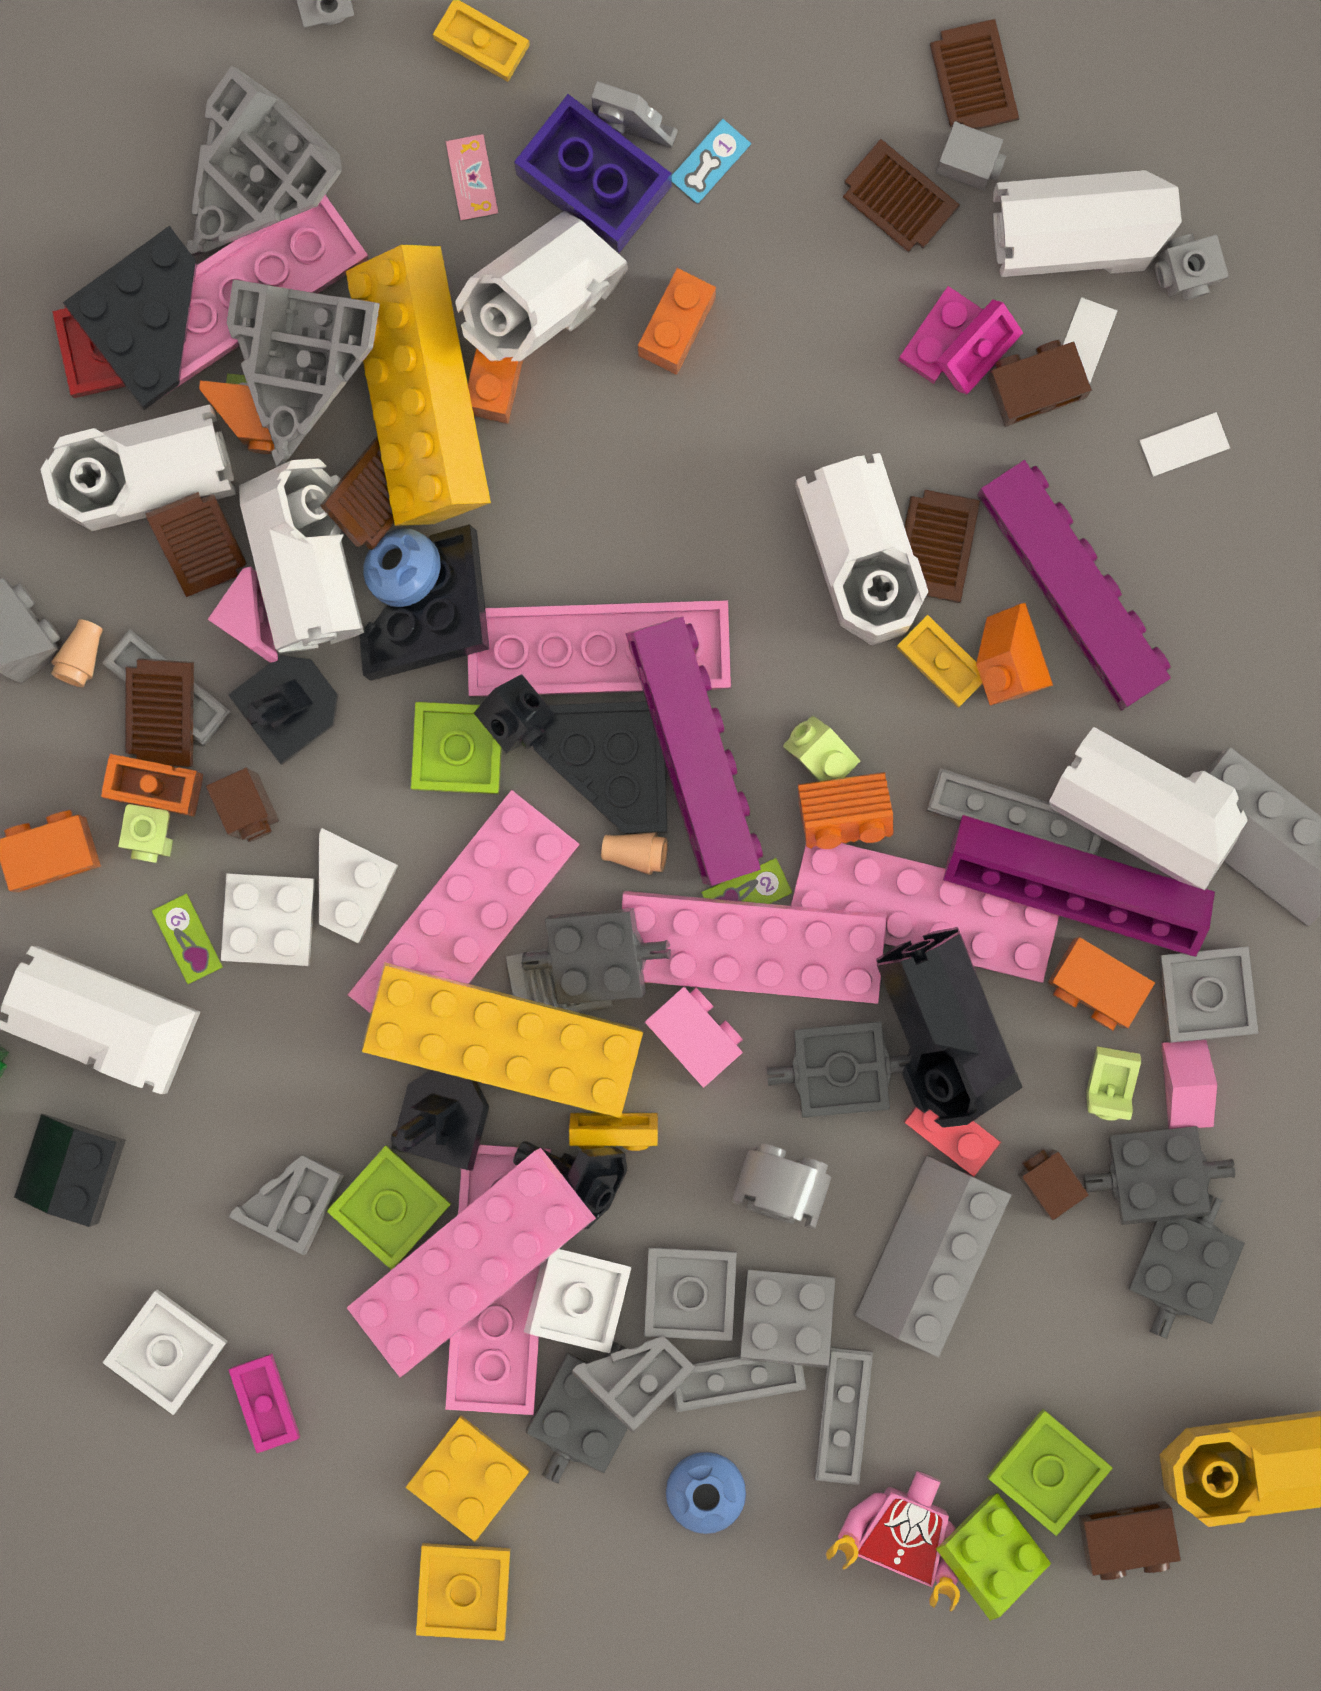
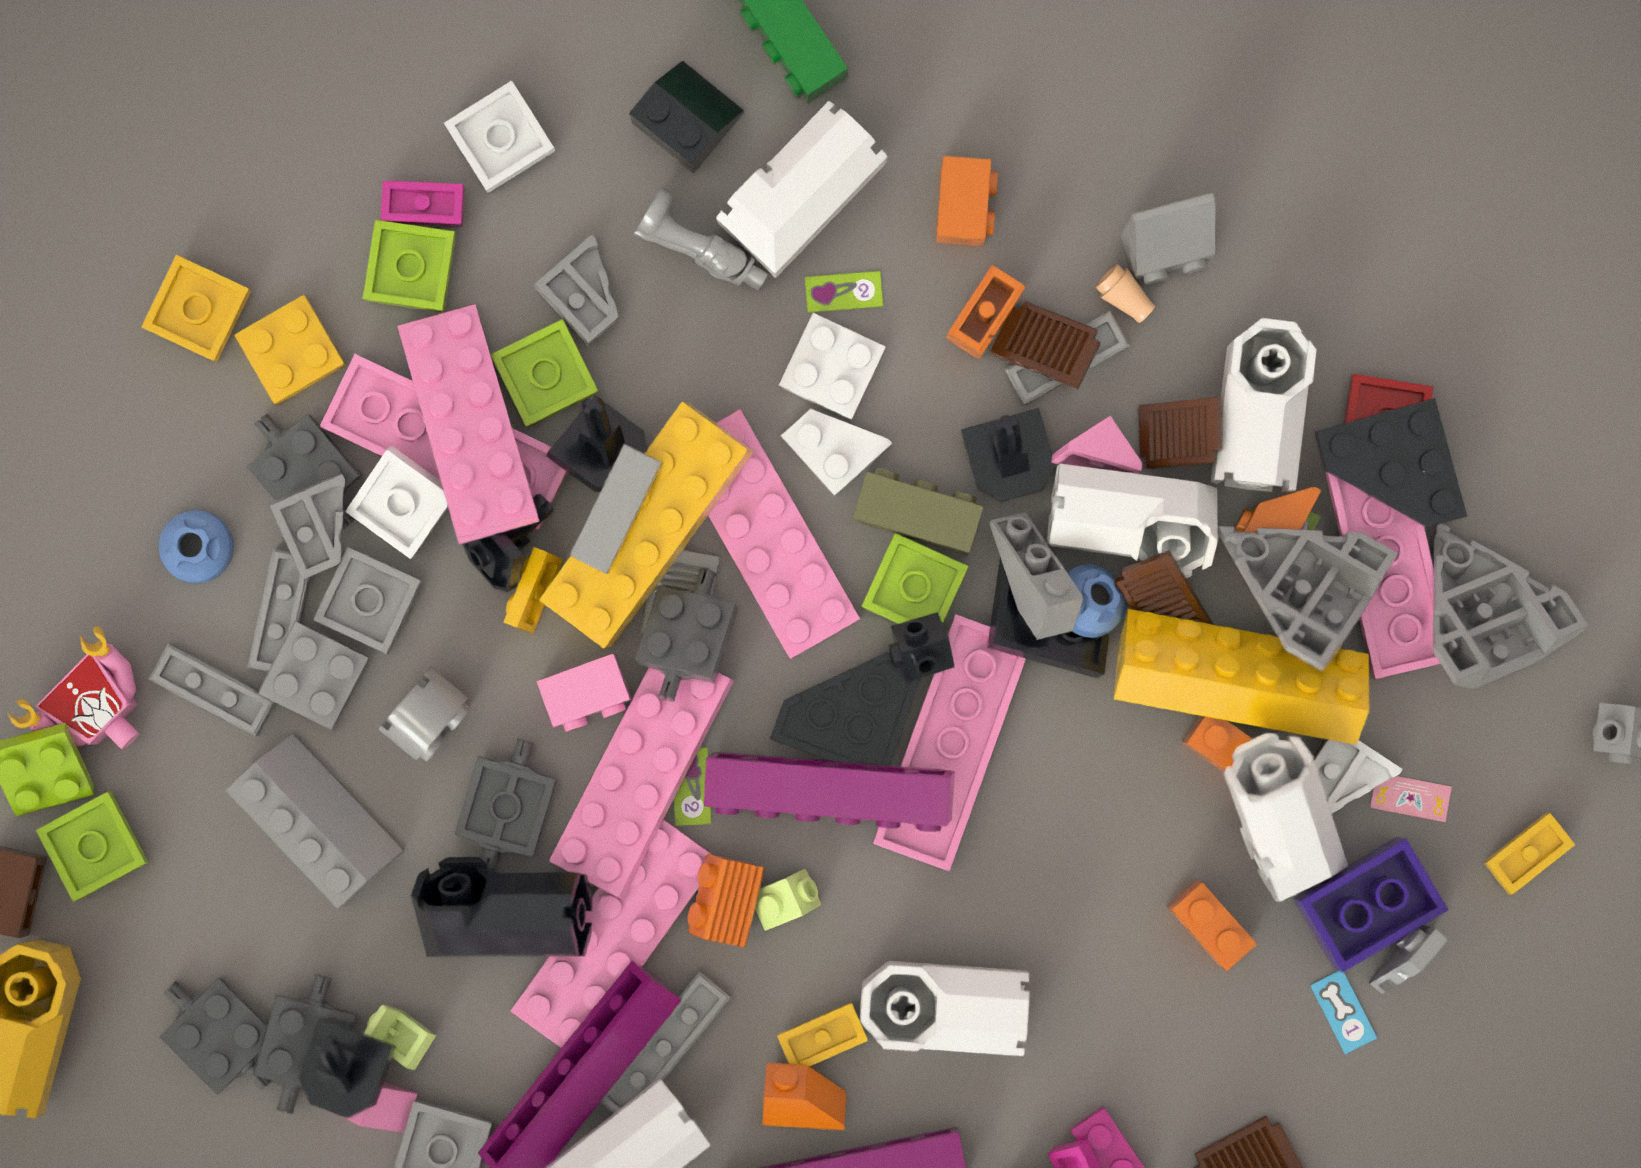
camera: 110 degrees right, 0 degrees up
(145, 833) = (946, 291): yellowish green bracket -> none
(200, 1087) = (710, 252): none -> light grey piece
(243, 805) = (936, 383): reddish brown brick -> none
(334, 1390) = (409, 266): none -> lime plate
(380, 774) = (918, 511): none -> olive brick
(400, 626) = (1036, 577): none -> light grey slope
(467, 242) = (1350, 771): none -> white wing
(497, 1074) = (616, 509): none -> light grey tile
(636, 851) = (763, 706): light nougat cone -> none
(941, 538) = (929, 1079): reddish brown window -> none
(965, 1144) = (395, 887): coral plate -> none
(1051, 1182) = (335, 948): reddish brown brick -> none
(1100, 984) = (489, 1060): orange brick -> none
(1167, 1122) = (344, 1069): none -> black piece

